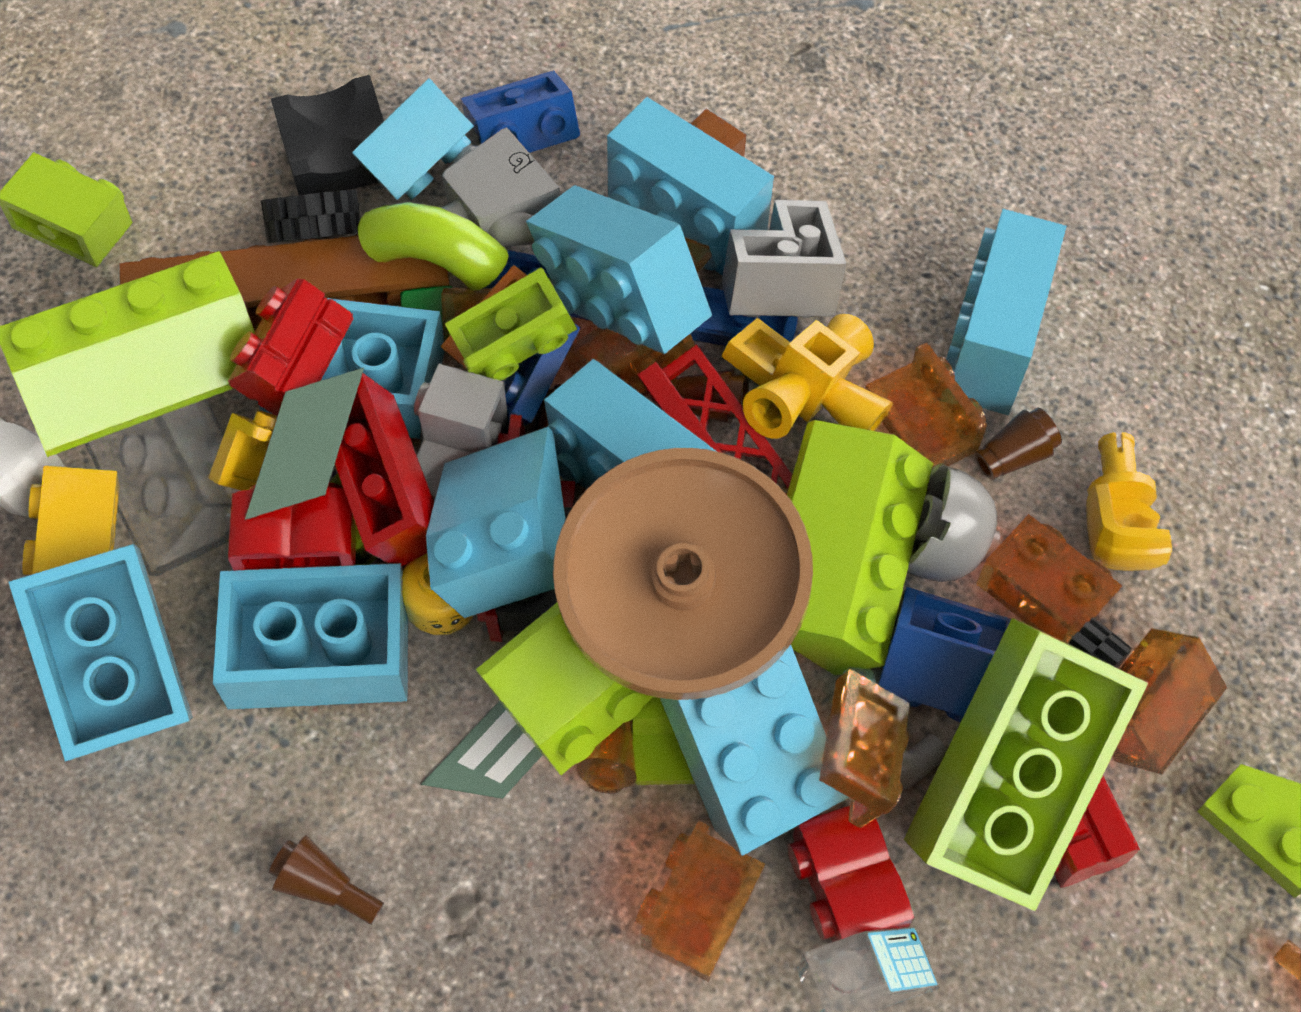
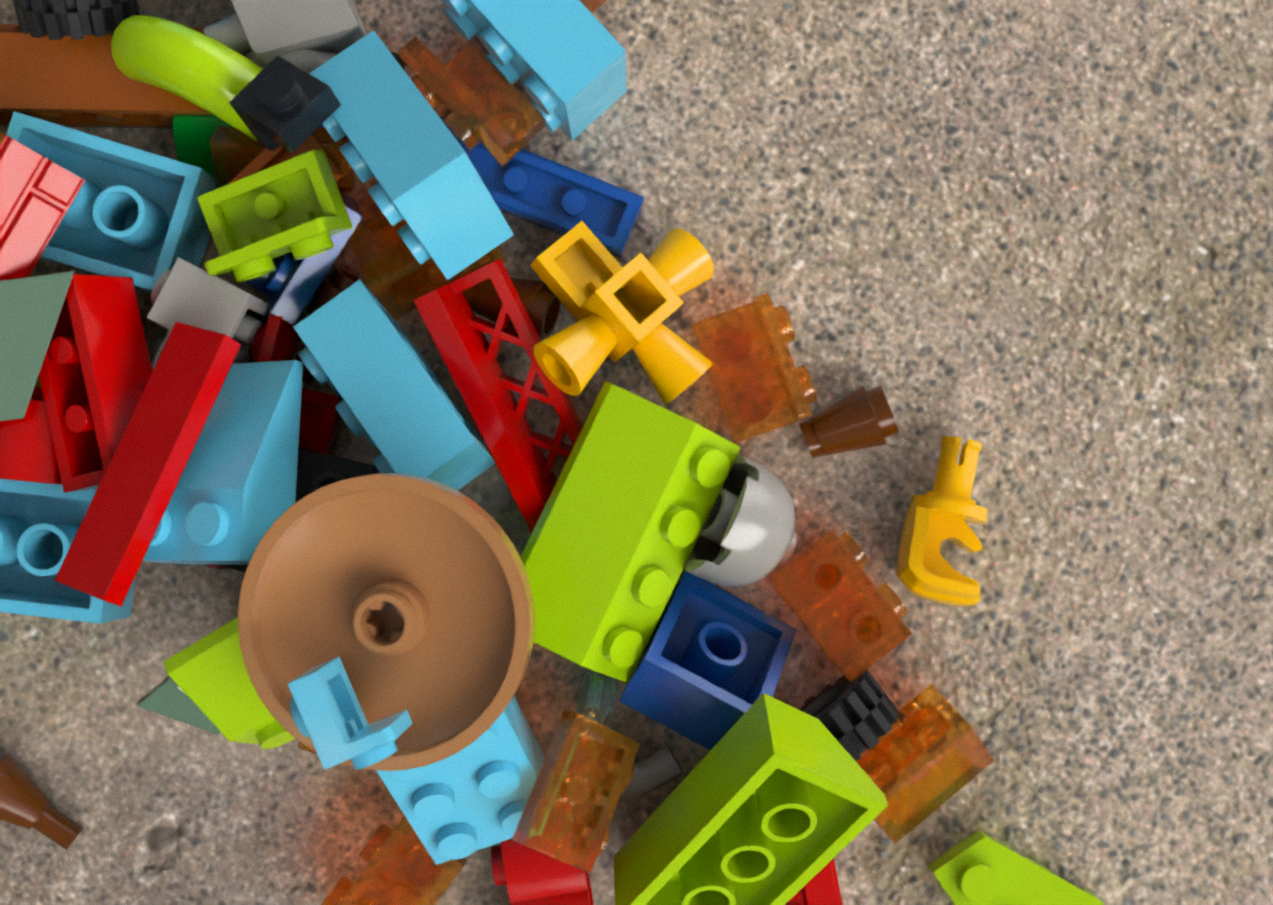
camera: 15 degrees right, 25 degrees up
(446, 501) = (148, 463): none -> red tile
(516, 236) = (284, 105): none -> black bracket
(654, 630) = (331, 715): none -> medium azure bracket
(786, 269) = (632, 166): light grey brick -> none
(1004, 308) = (875, 257): medium azure brick -> none

